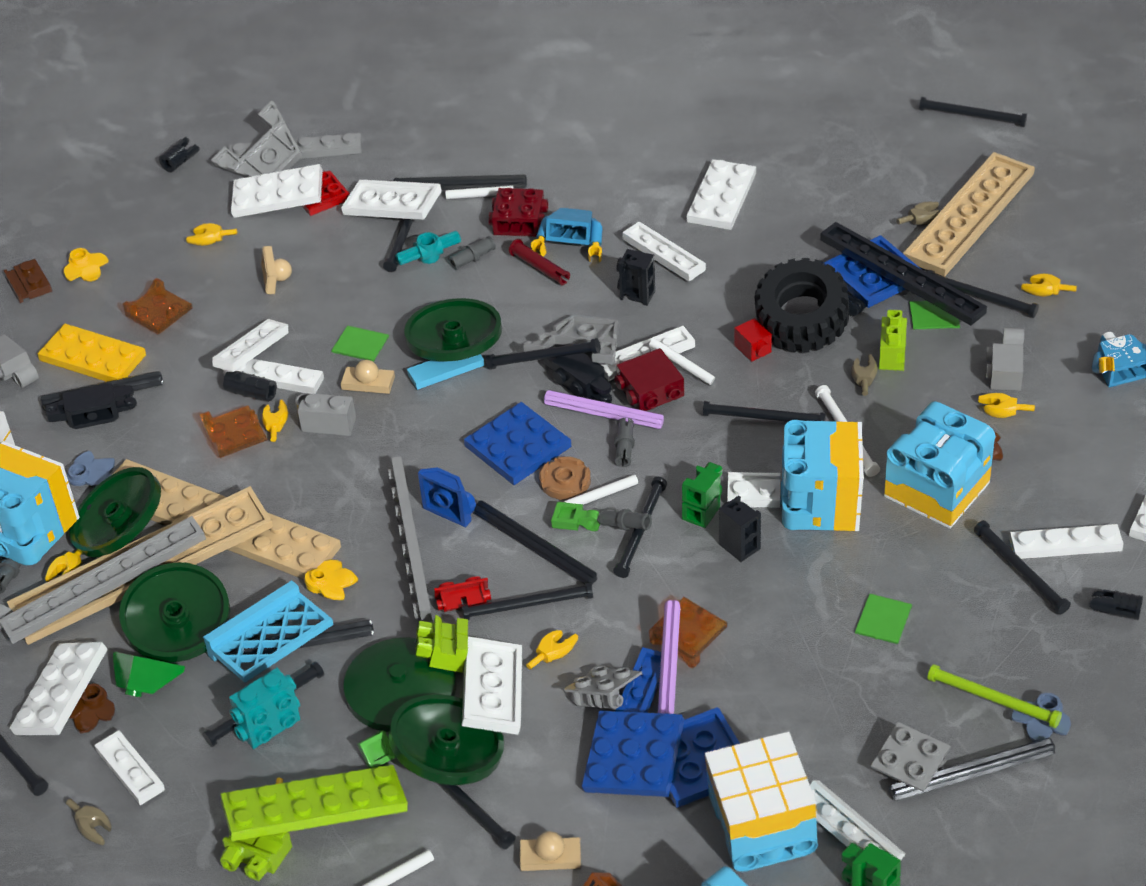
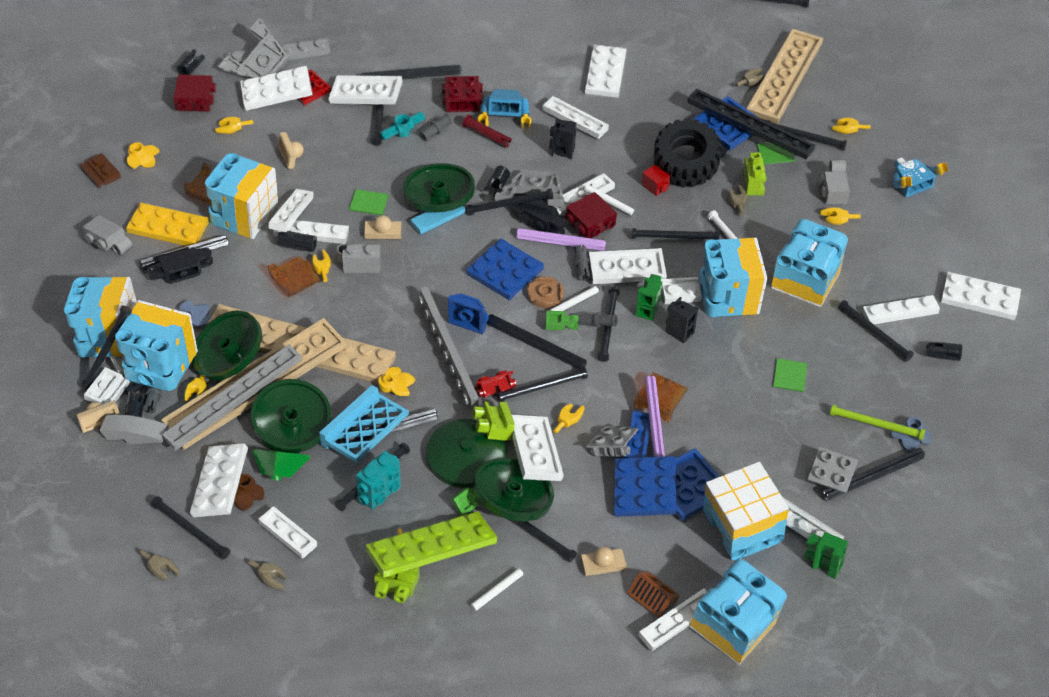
camera: 15 degrees left, 5 degrees up
(170, 191) = (194, 93): none -> dark red brick
(187, 320) = (241, 195): none -> piece
(473, 192) = (425, 80): white bar -> none
(538, 323) = (498, 179): none -> black hinge
(683, 450) = (626, 265): none -> white plate

